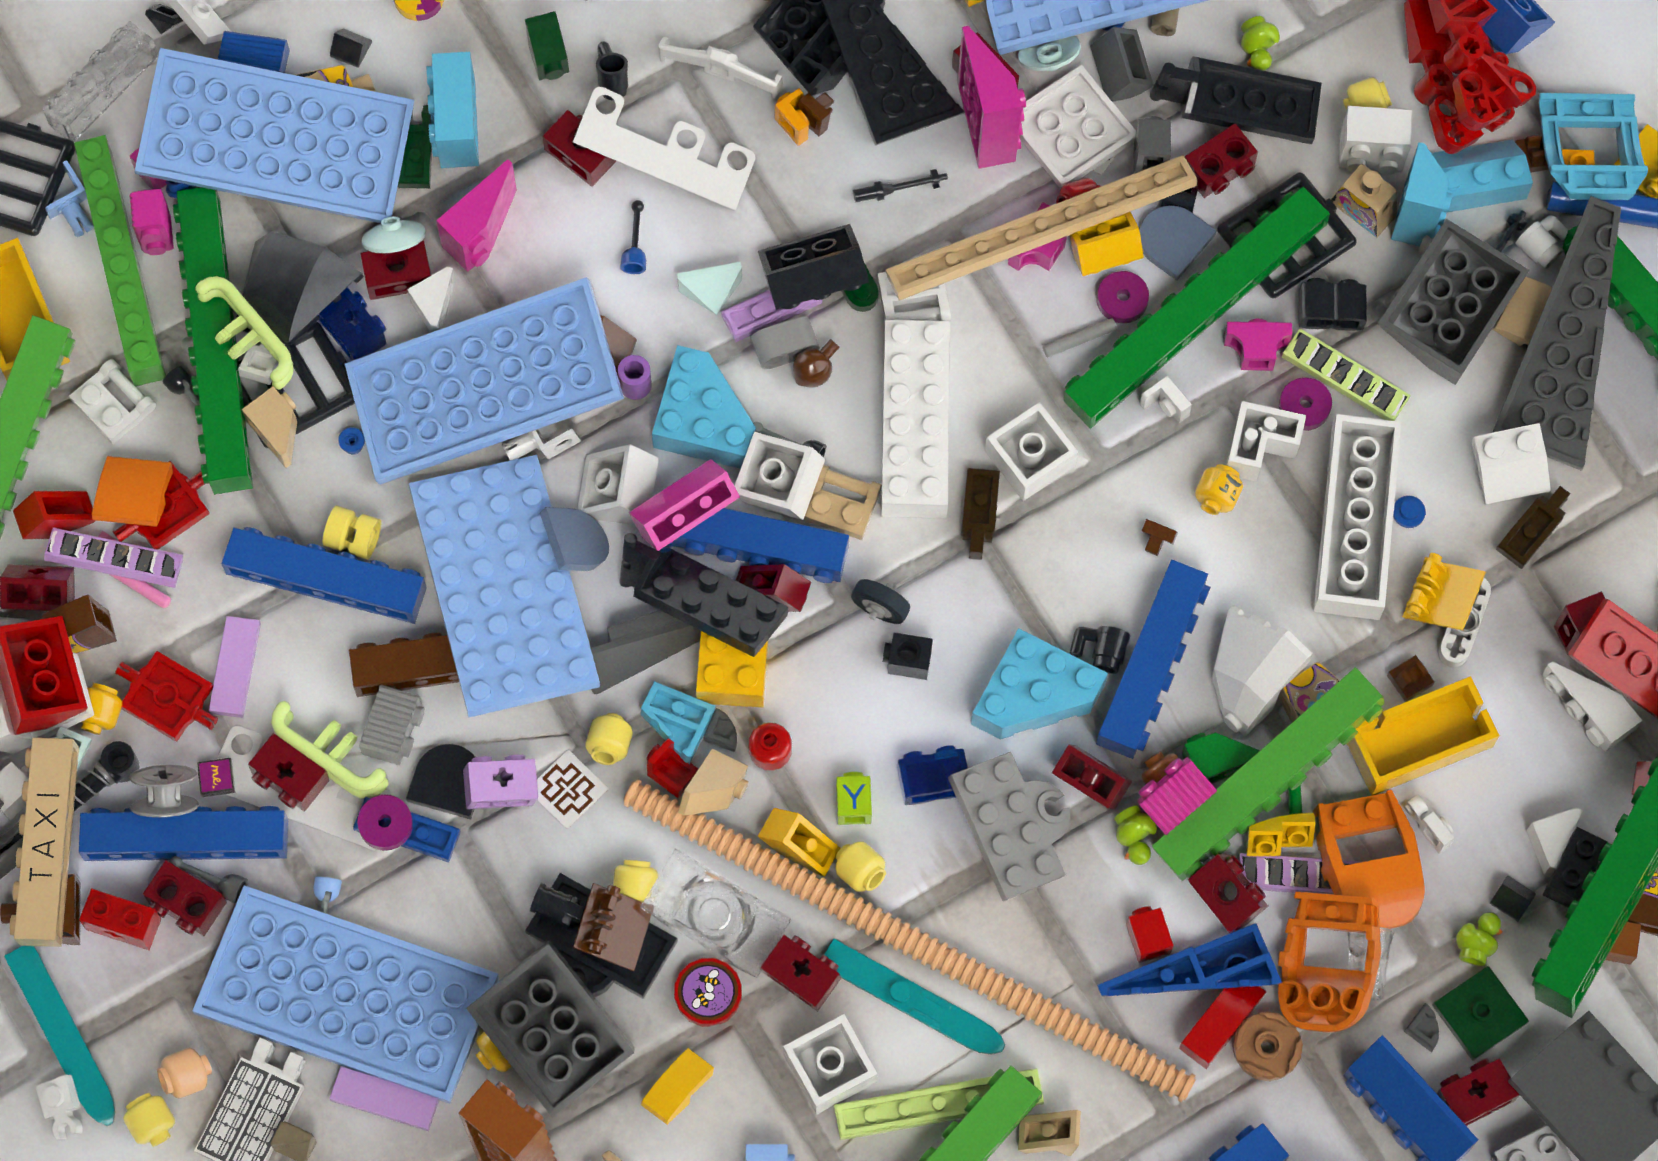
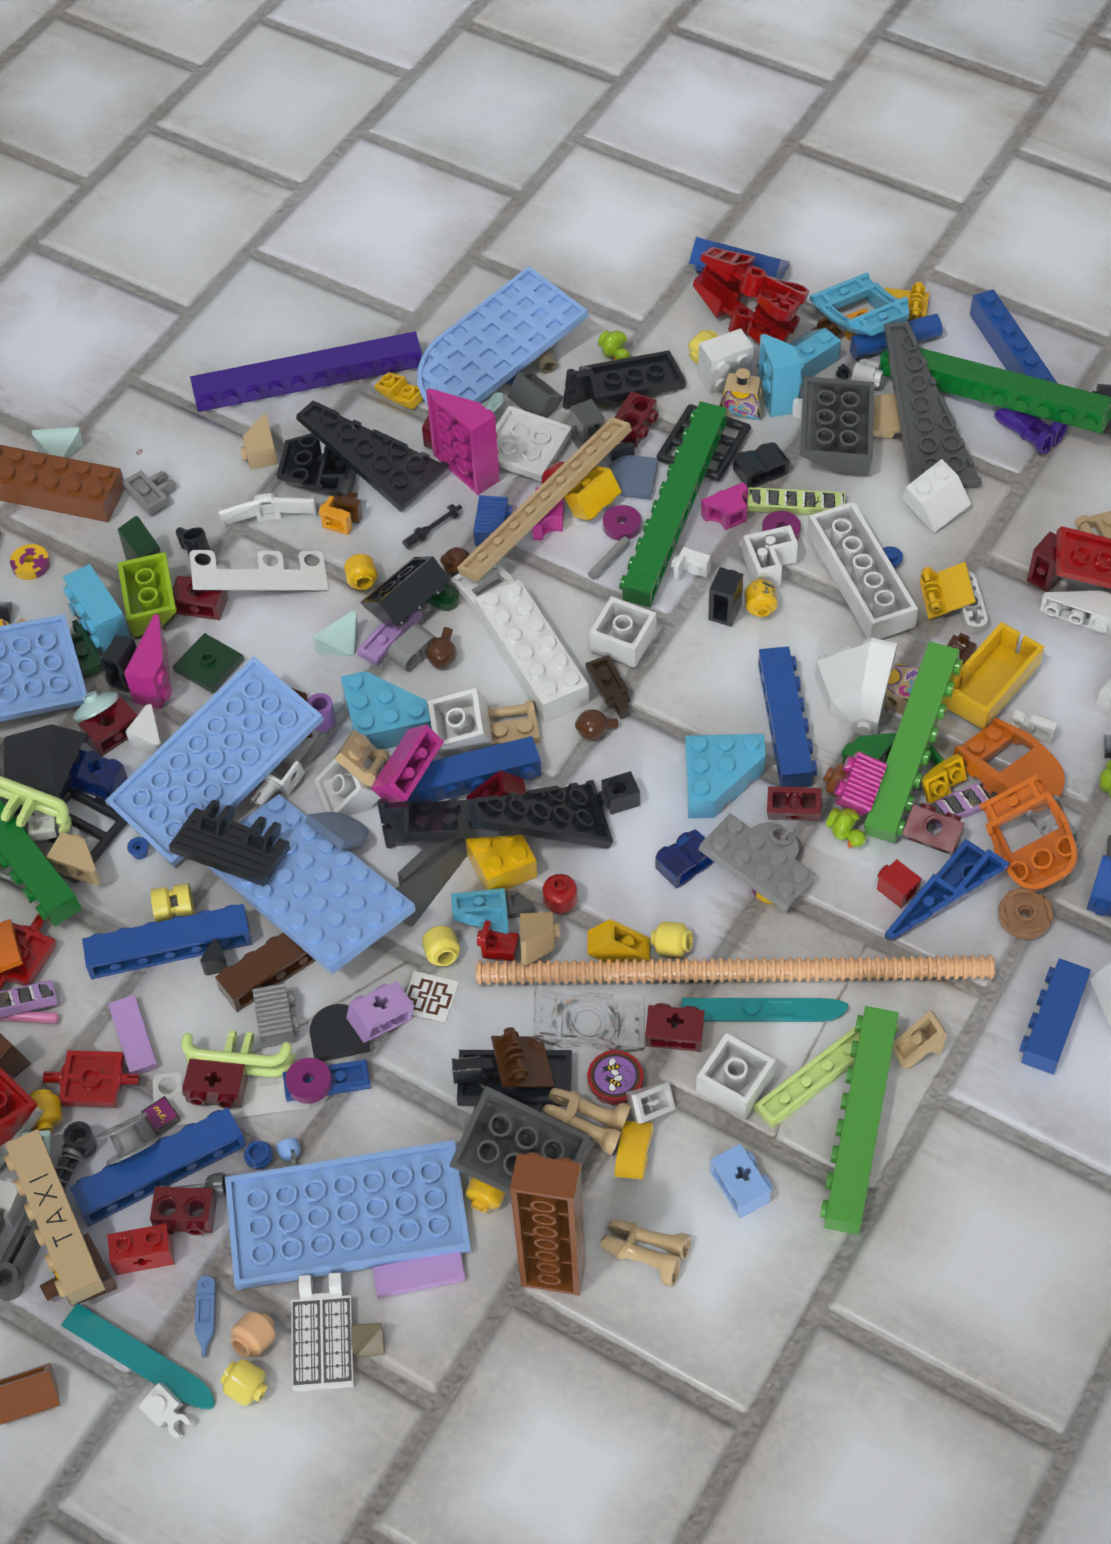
camera: 25 degrees left, 15 degrees down
(152, 1020) = (205, 1312): none -> medium blue piece
(292, 877) = (258, 1155): none -> blue plate
(362, 624) = (213, 959): none -> black slope
(444, 191) = (116, 660): none -> black brick
(444, 505) = (232, 850): none -> black hinge
(521, 114) = (146, 591): none -> lime slope
(548, 240) = (208, 663): none -> dark green plate
(634, 259) = (273, 646): blue hinge -> none
(635, 878) = (520, 1020): light yellow head -> none
(637, 457) = (354, 754): none -> tan plate
(676, 1039) = (613, 1118): none -> tan piece
(724, 1044) = (650, 1102): none -> white slope
(780, 209) = (360, 571): none -> yellow head
(811, 650) = (550, 813): none -> black wing
(854, 799) = (639, 899): lime brick -> none
(880, 601) = (579, 766): black wheel -> none
(896, 250) = (453, 559): none -> reddish brown piece
(930, 551) = (593, 724): none -> reddish brown piece
(970, 213) = (489, 516): none -> blue brick
(1108, 648) = (750, 721): black piece -> none
(1158, 534) = (739, 643): reddish brown tile -> none
(1175, 468) = (725, 596): none -> black brick
(1220, 1023) = (984, 915): red slope -> none
(1533, 528) = (975, 529): dark brown hinge -> none

